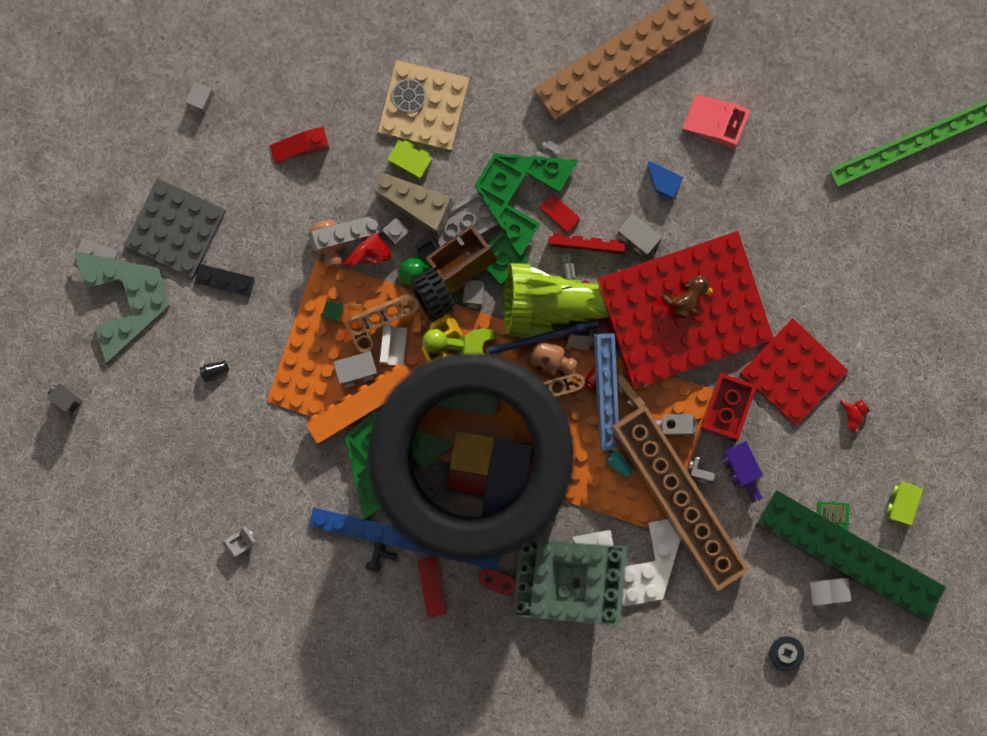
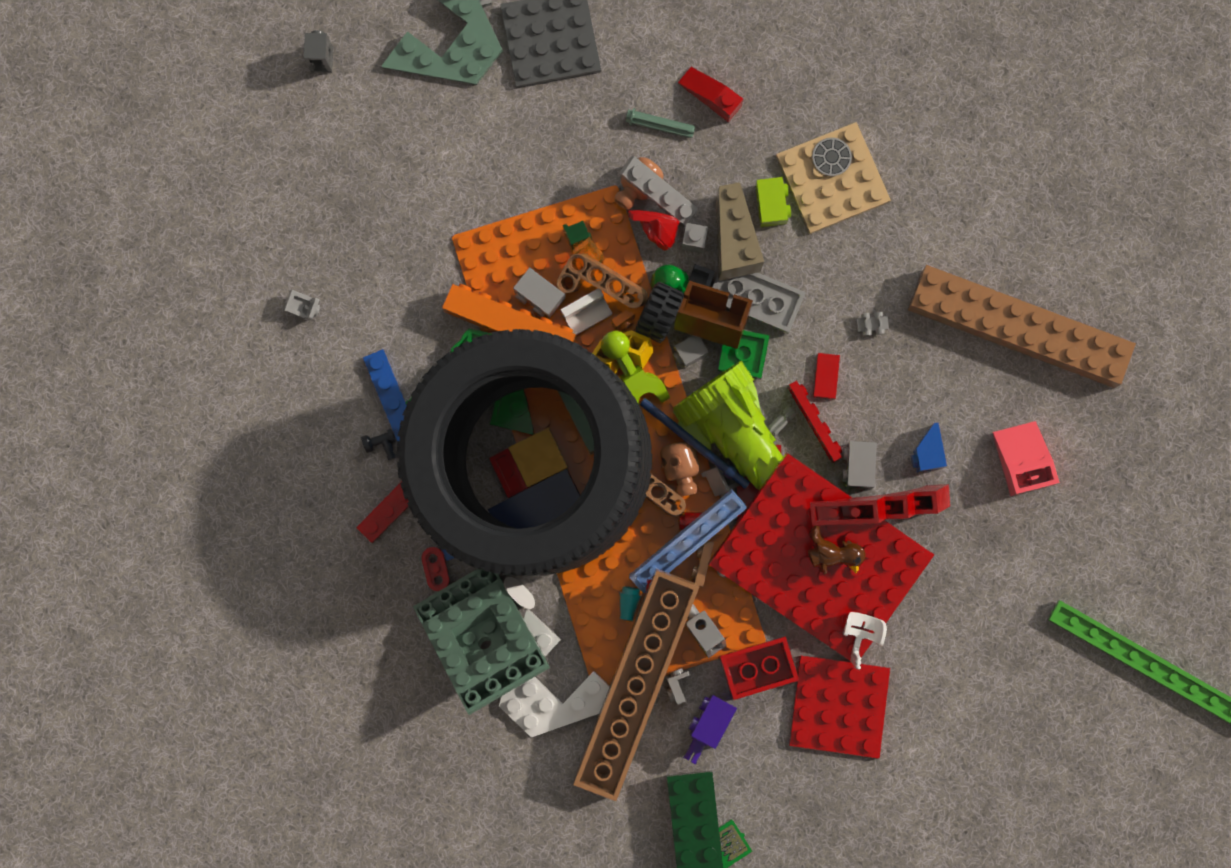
camera: 55 degrees right, 0 degrees up
(213, 370) = (443, 166): black cone -> none
(224, 280) = (535, 117): black plate -> none
(295, 197) = (659, 123): none -> sand green axle
(502, 179) = (814, 299): green wing -> none
(557, 534) = (519, 592): none -> white sticker
(680, 245) = (877, 508): none -> red arch
(754, 307) = (871, 623): none -> white helmet
(855, 414) = (842, 795): red animal -> none

